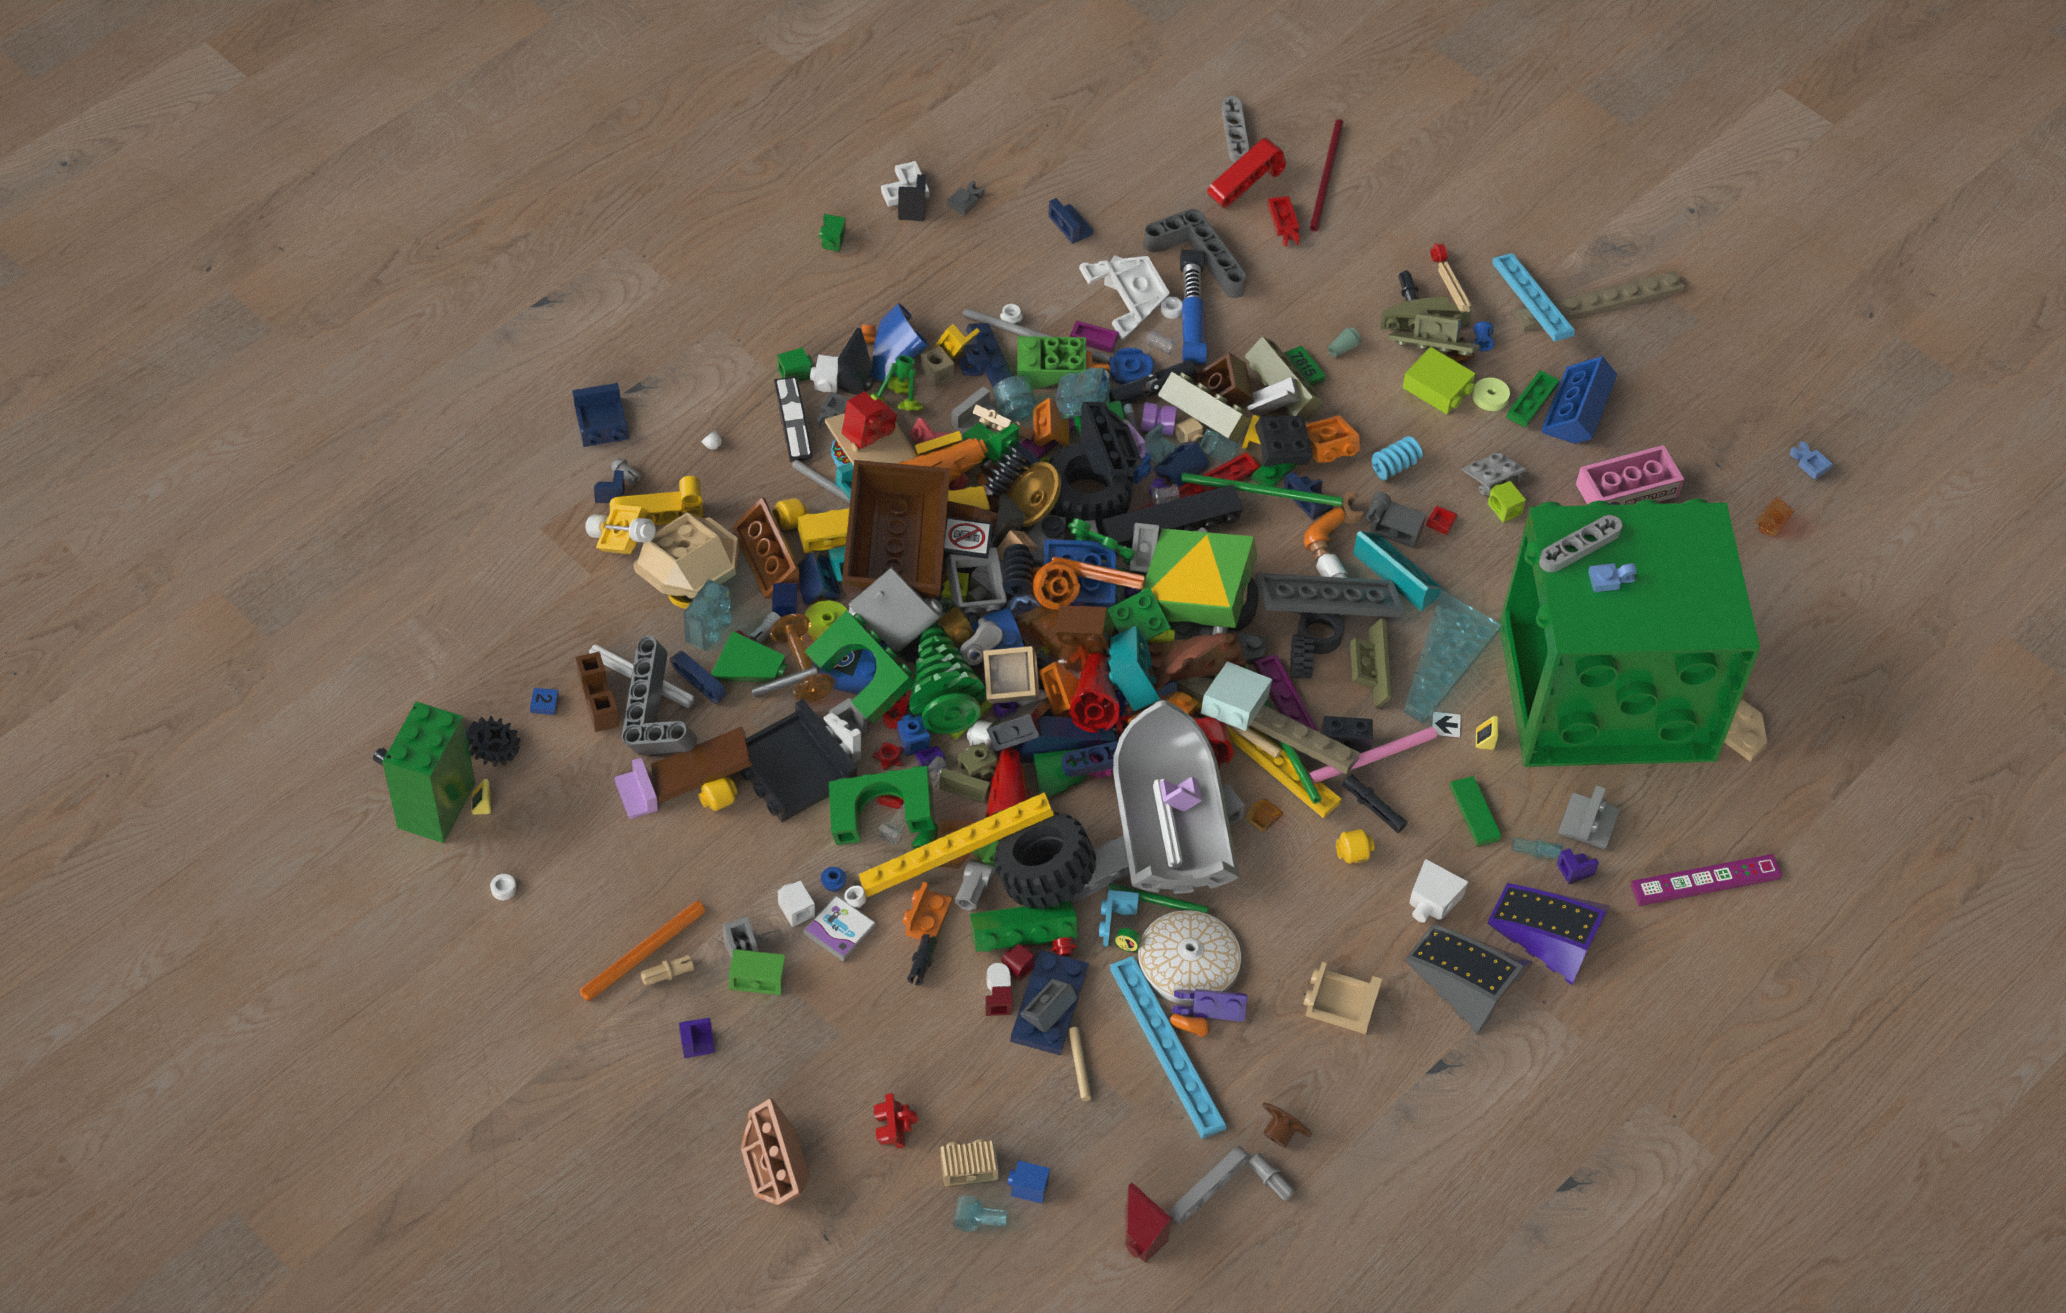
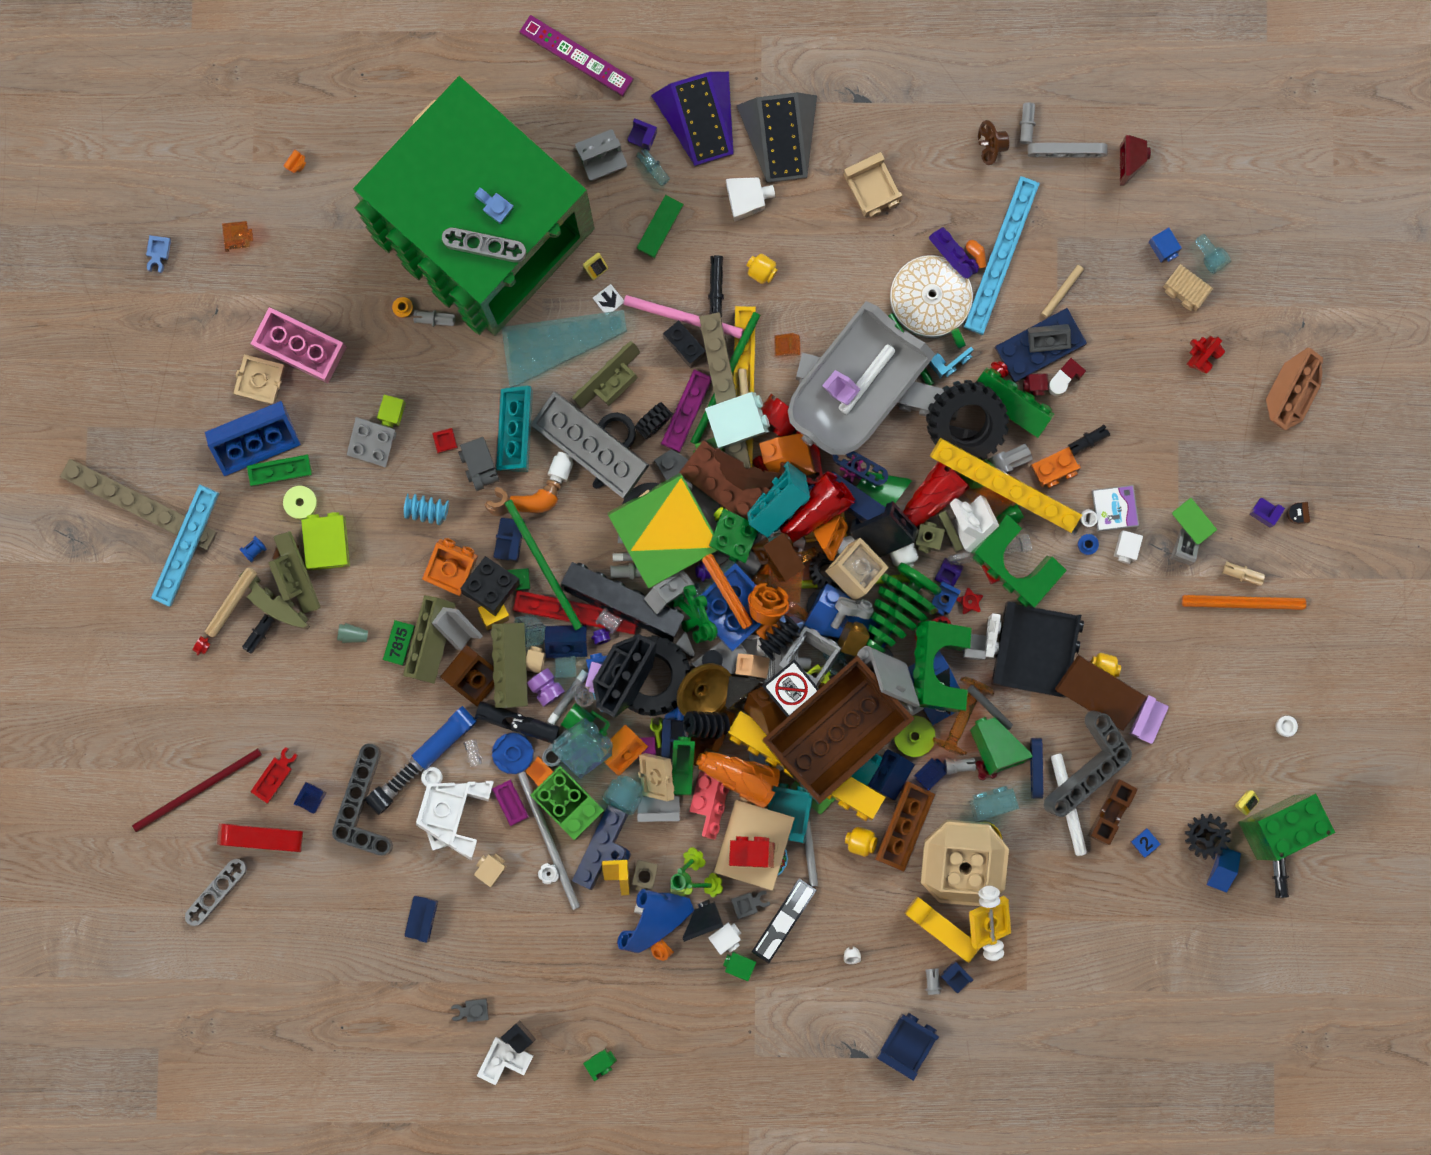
camera: 130 degrees left, 30 degrees up
(664, 1066) = (1299, 513): none -> tile
(938, 443) = (722, 794): yellow plate -> none
(956, 793) = (973, 521): none -> white bracket
(1057, 282) = (490, 869): none -> tan brick
(1245, 229) = (310, 797): none -> clear blue panel
(1625, 438) = (259, 379): none -> tan plate
(1803, 604) = (295, 162): none -> orange plate

